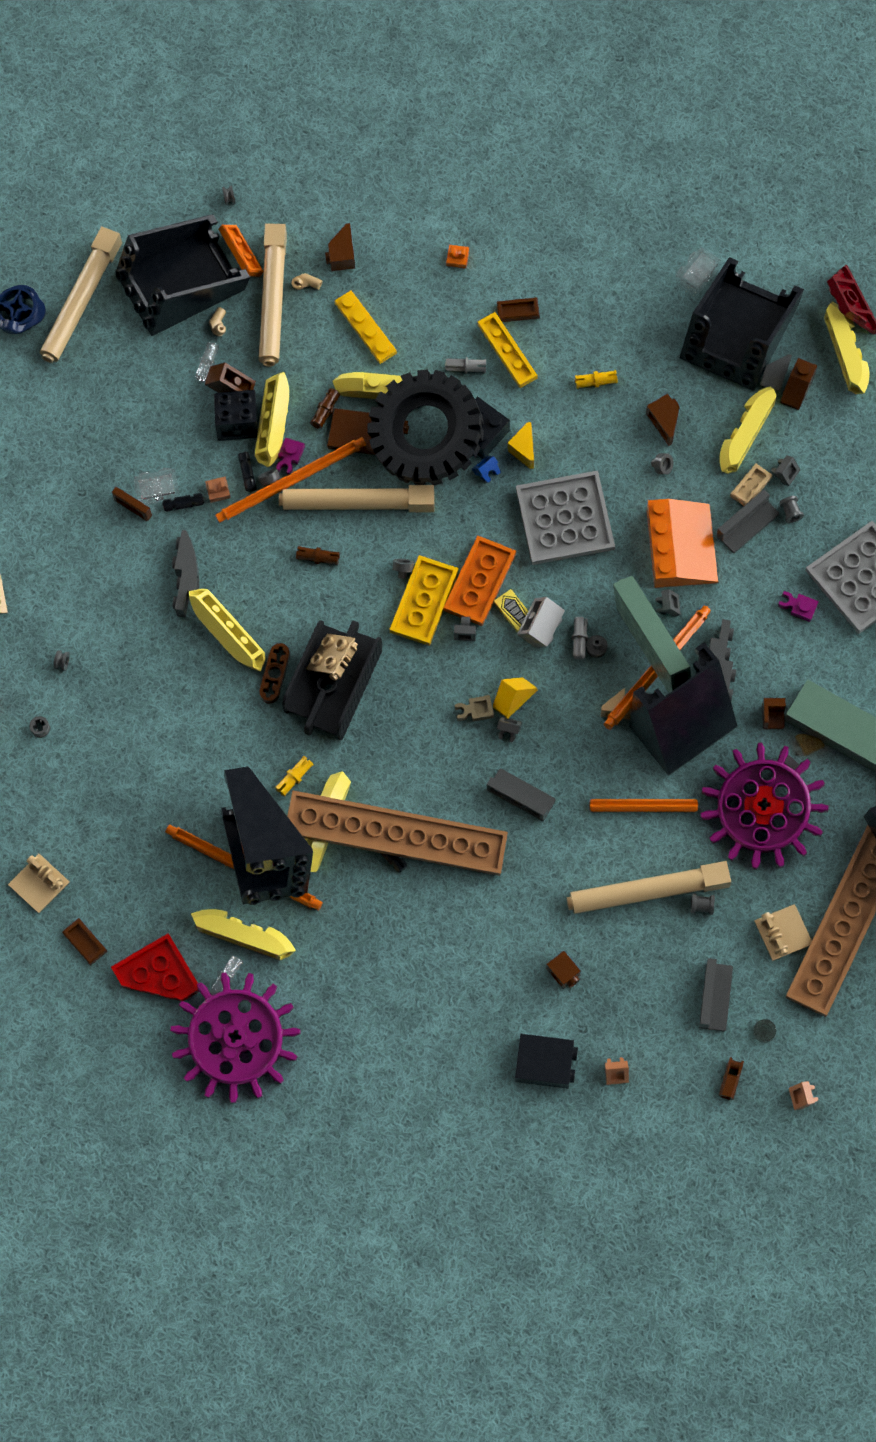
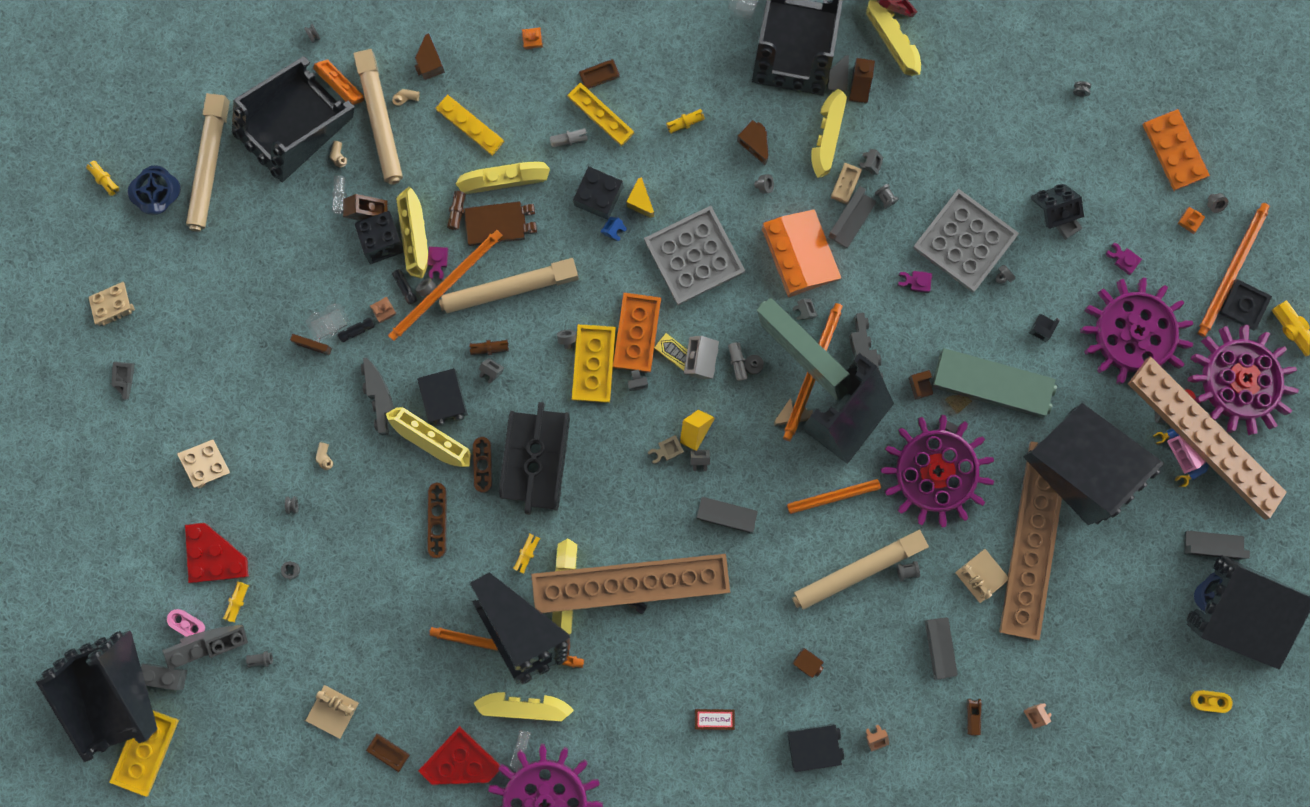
camera: 20 degrees left, 10 degrees up
(108, 621) = (322, 457): none -> tan arm
(206, 716) = (437, 520): none -> reddish brown beam
(253, 592) = (442, 397): none -> black brick
(314, 578) = (490, 368): none -> dark grey tile
(332, 655) = (529, 440): tan hinge -> none
(445, 1003) = (715, 719): none -> tile
(451, 453) = (585, 215): black tyre -> none
(764, 1031) = (990, 666): clear smoke tile -> none

